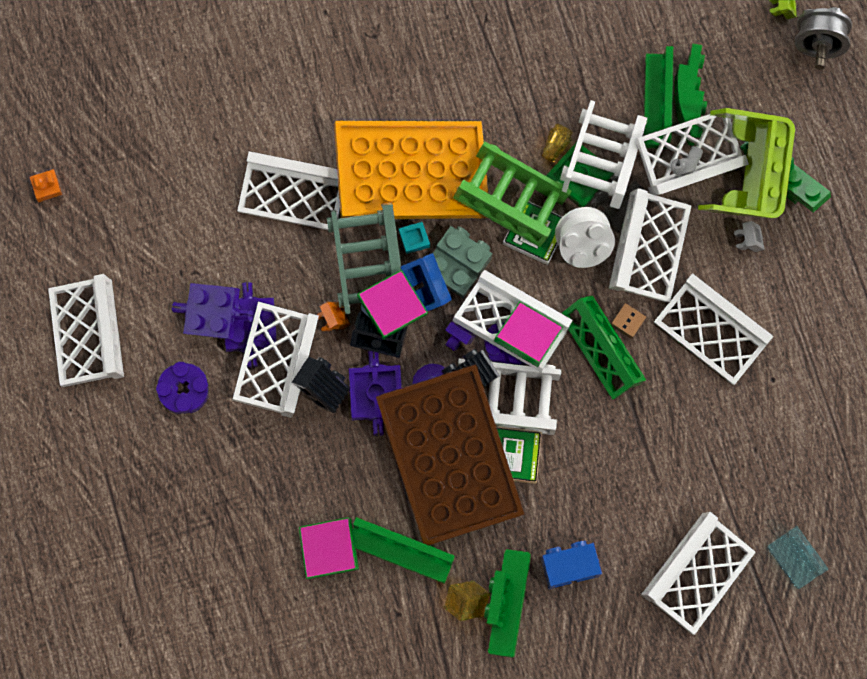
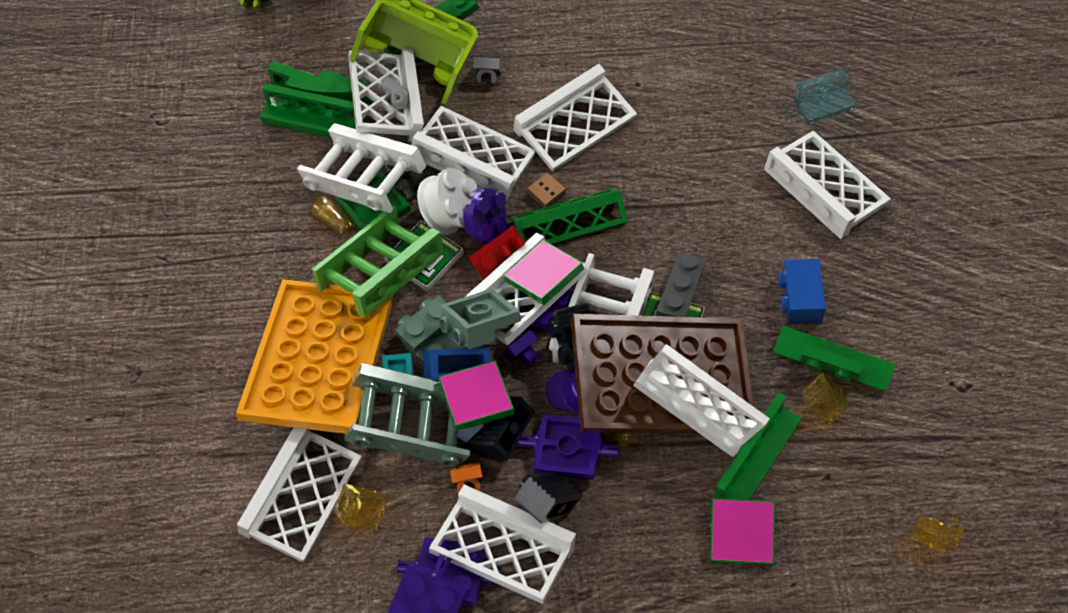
camera: 70 degrees left, 15 degrees down
(289, 241) = (360, 507): none -> clear yellow panel
(421, 486) = (701, 413): none -> white fence
(466, 288) = (476, 318): none -> sand green plate
(548, 292) = (496, 252): none -> red plate
(549, 457) = (681, 286): none -> dark grey plate
(579, 284) = (485, 215): none -> dark purple plate

